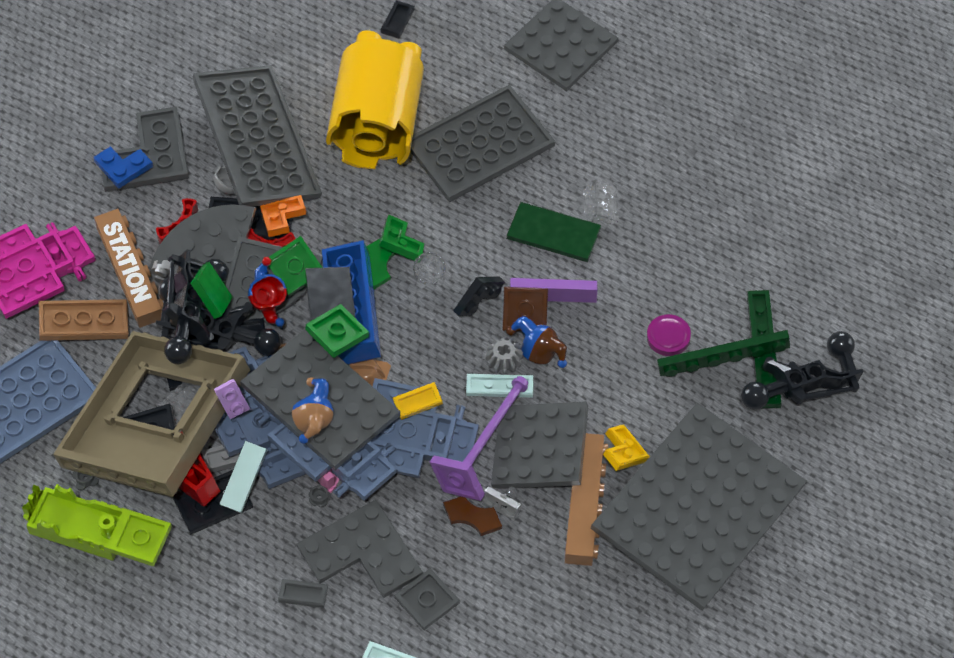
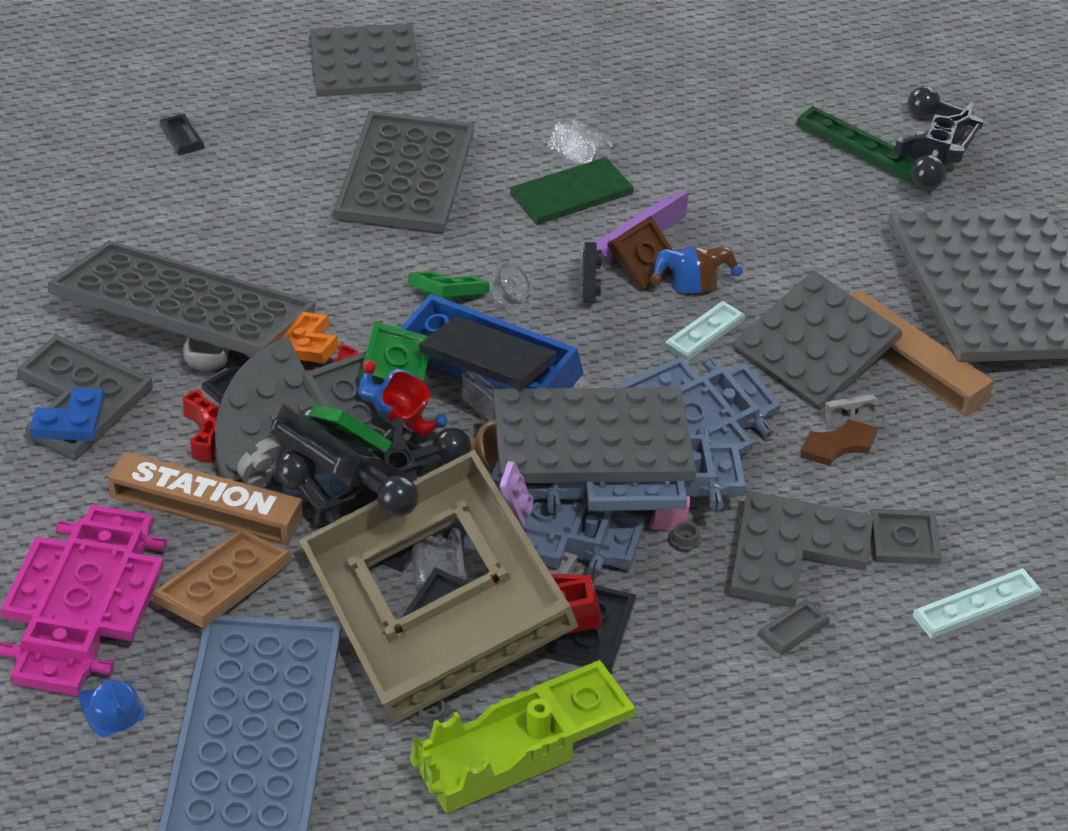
camera: 50 degrees left, 15 degrees down
(243, 477) = (604, 568): light aqua tile -> none
(313, 411) = (621, 429): medium nougat piece -> none
(337, 330) = (537, 358): green tile -> none
(376, 100) = (279, 181): yellow brick -> none
(418, 400) = (676, 369): yellow tile -> none
(458, 476) = (795, 407): medium lavender tile -> none
(503, 355) = (677, 302): light grey gear -> none
(626, 450) = (887, 292): yellow tile -> none
(668, 335) = (782, 193): magenta piece -> none
(724, 353) = (853, 167): dark green plate -> none

